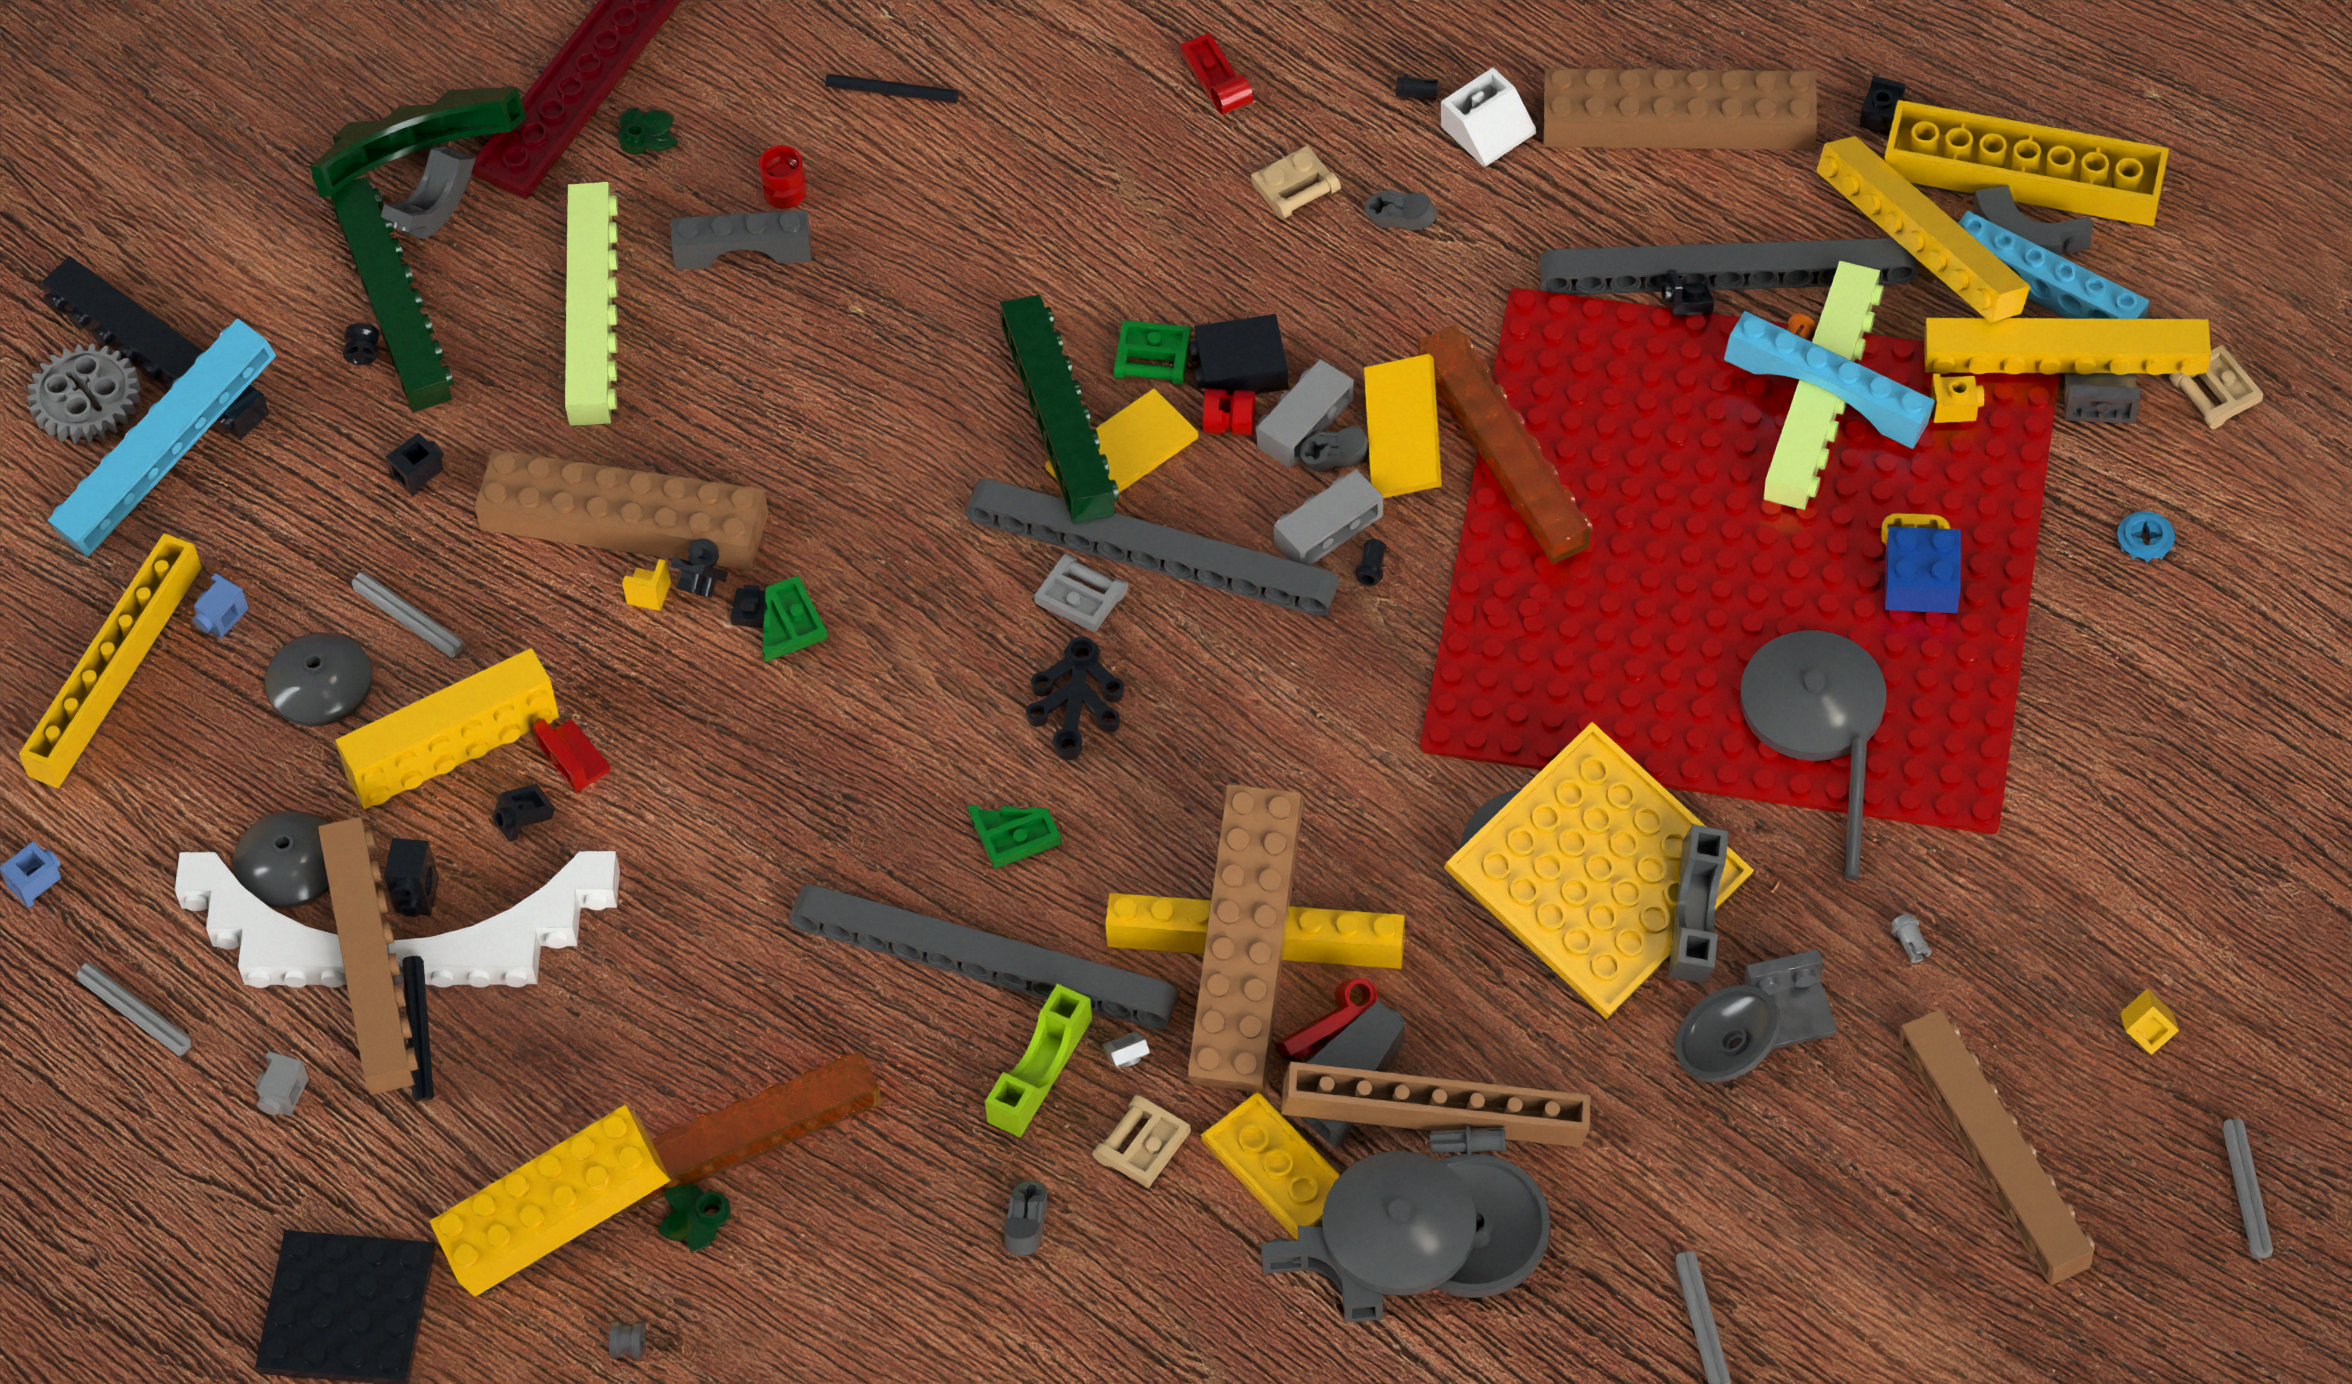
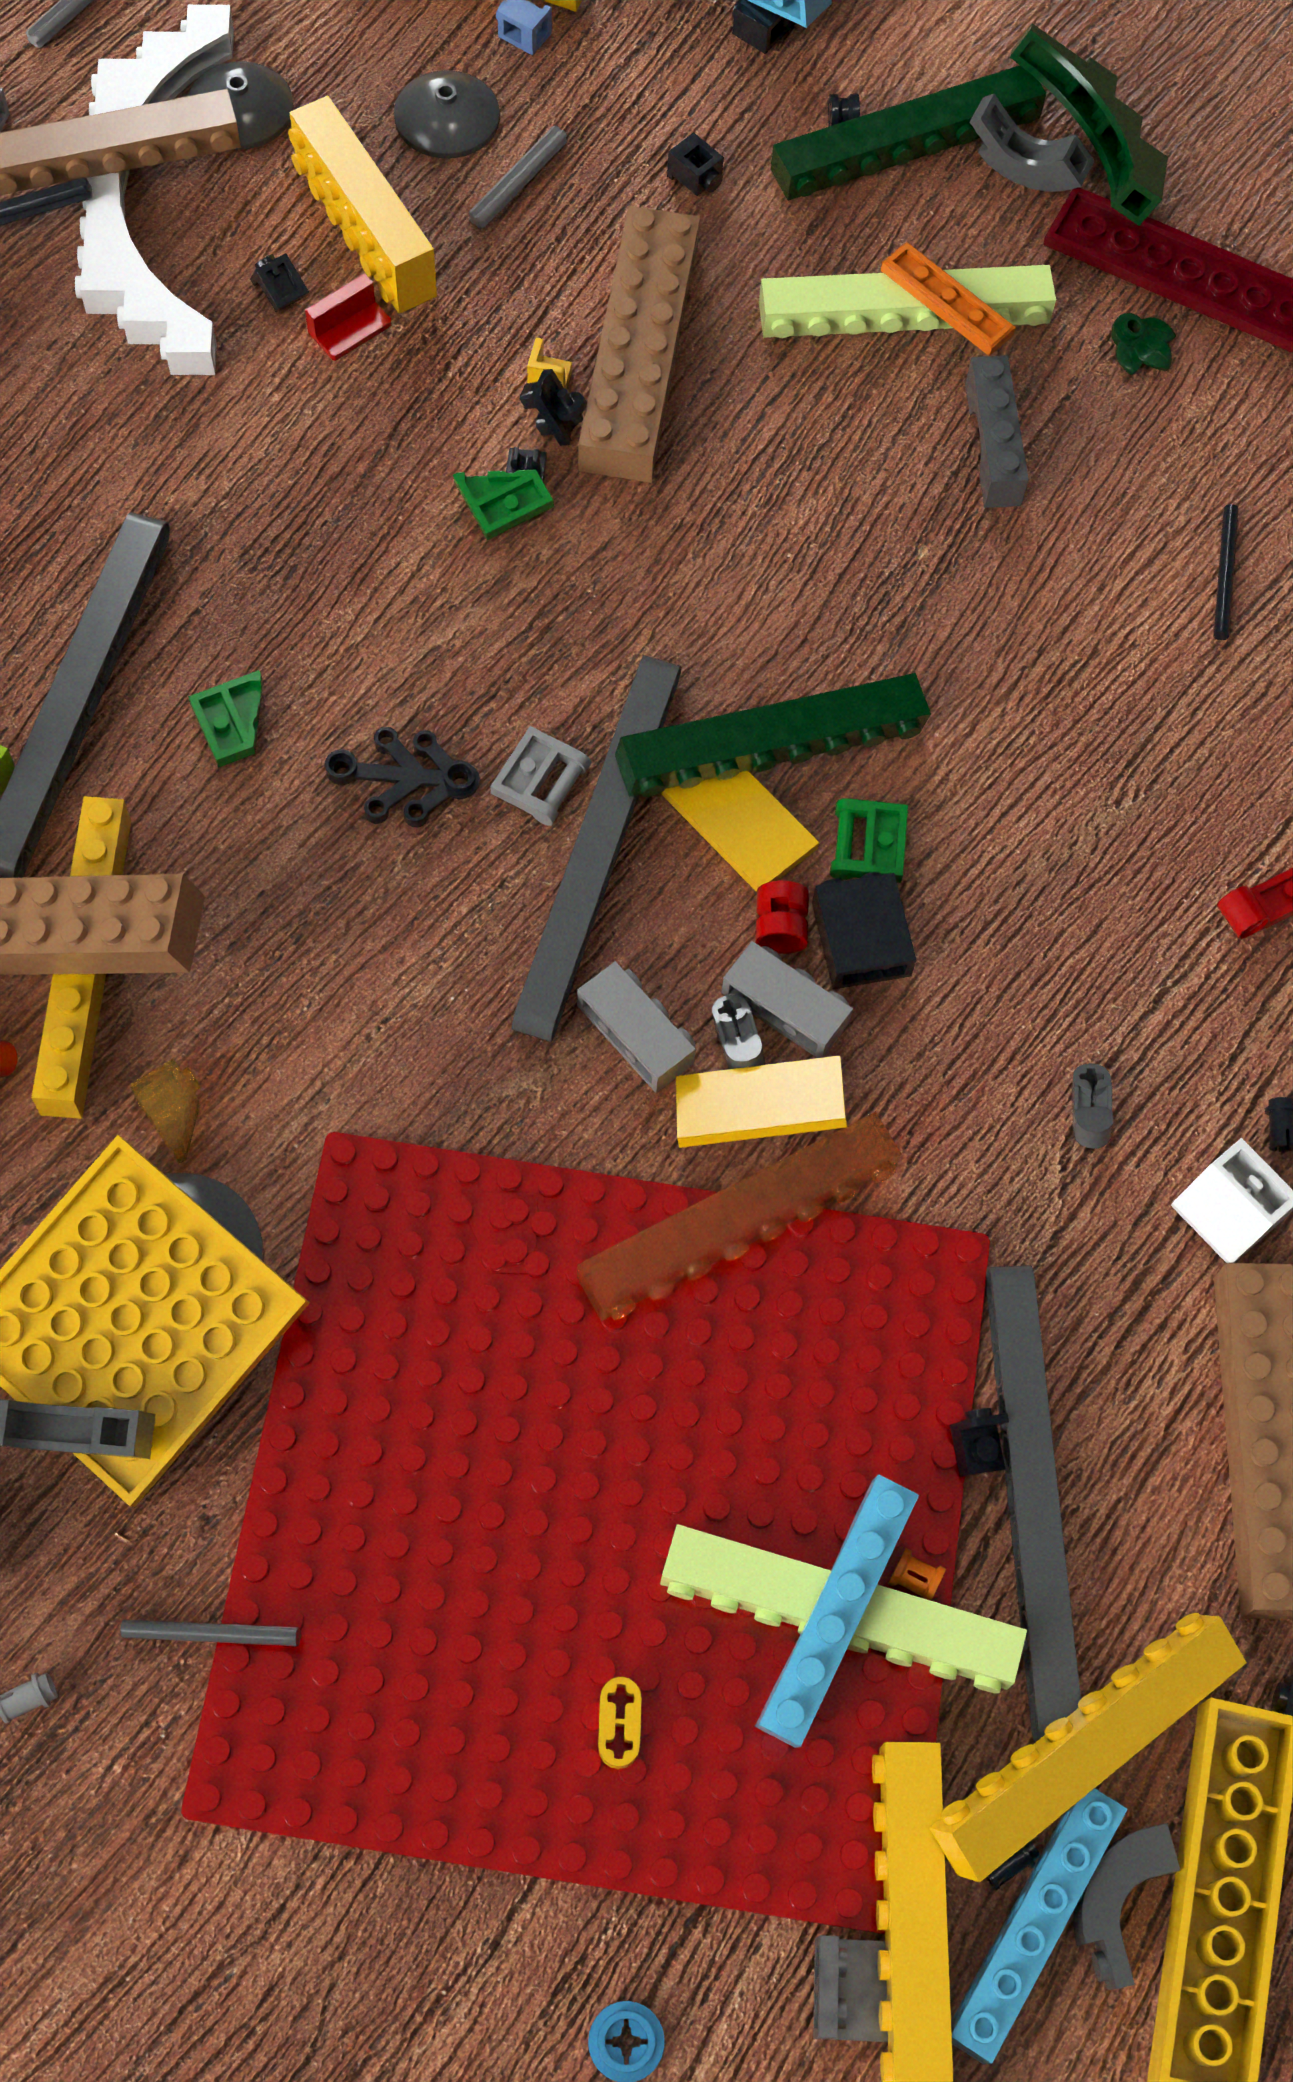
camera: 80 degrees right, 10 degrees up
(411, 877) = (189, 185): black brick -> none
(603, 260) = (948, 298): none -> orange tile
(782, 176) = (1082, 463): red wheel -> none
(1291, 175) = (1138, 985): tan plate -> none
(1369, 569) = (580, 1076): black pin -> none
(1402, 858) = (170, 1104): none -> clear yellow slope
(1812, 695) = (376, 1584): dark grey dish -> none
(1922, 569) = (550, 1726): blue brick -> none
(1955, 398) = (814, 1767): yellow brick -> none

